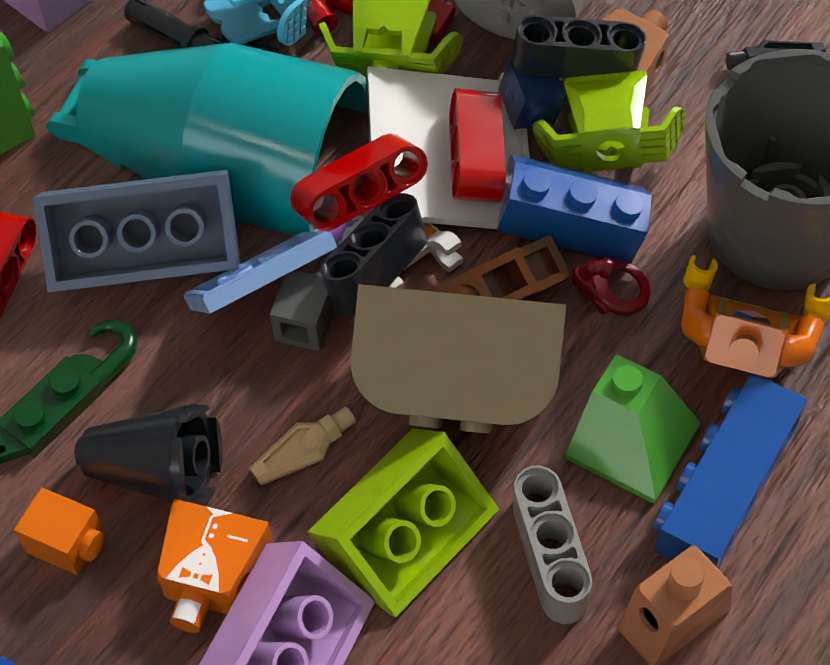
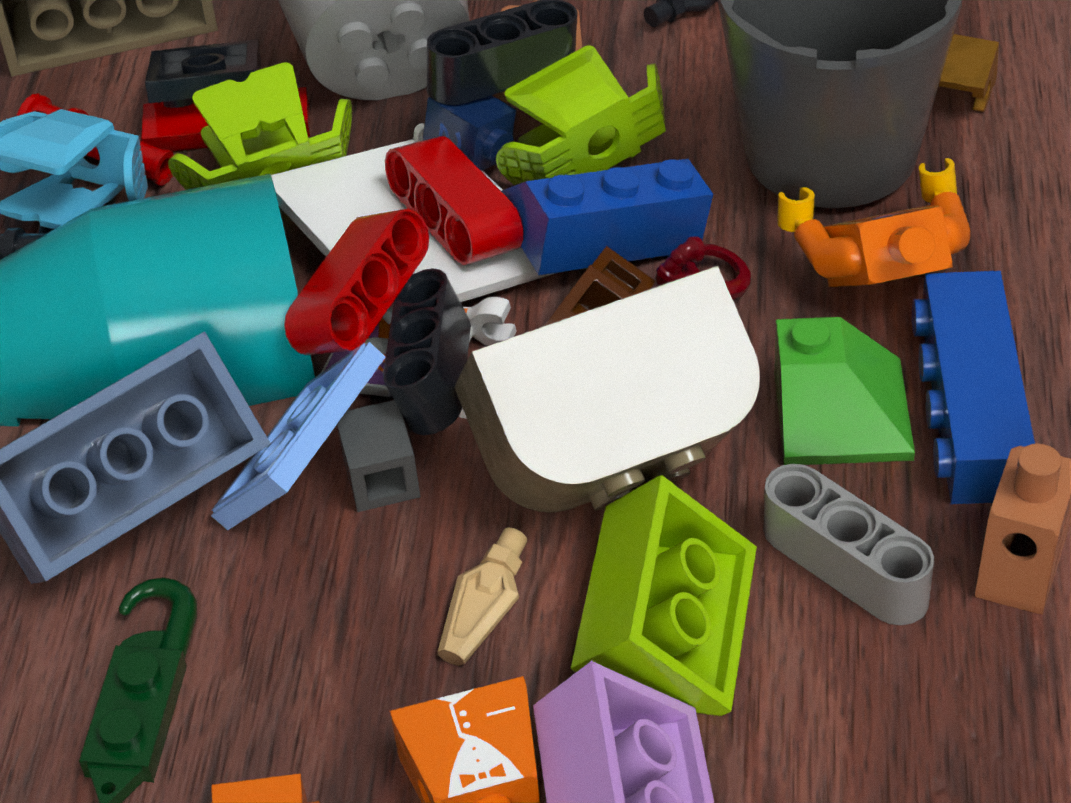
camera: 30 degrees left, 10 degrees down
(156, 453) = (315, 686): black cone -> none

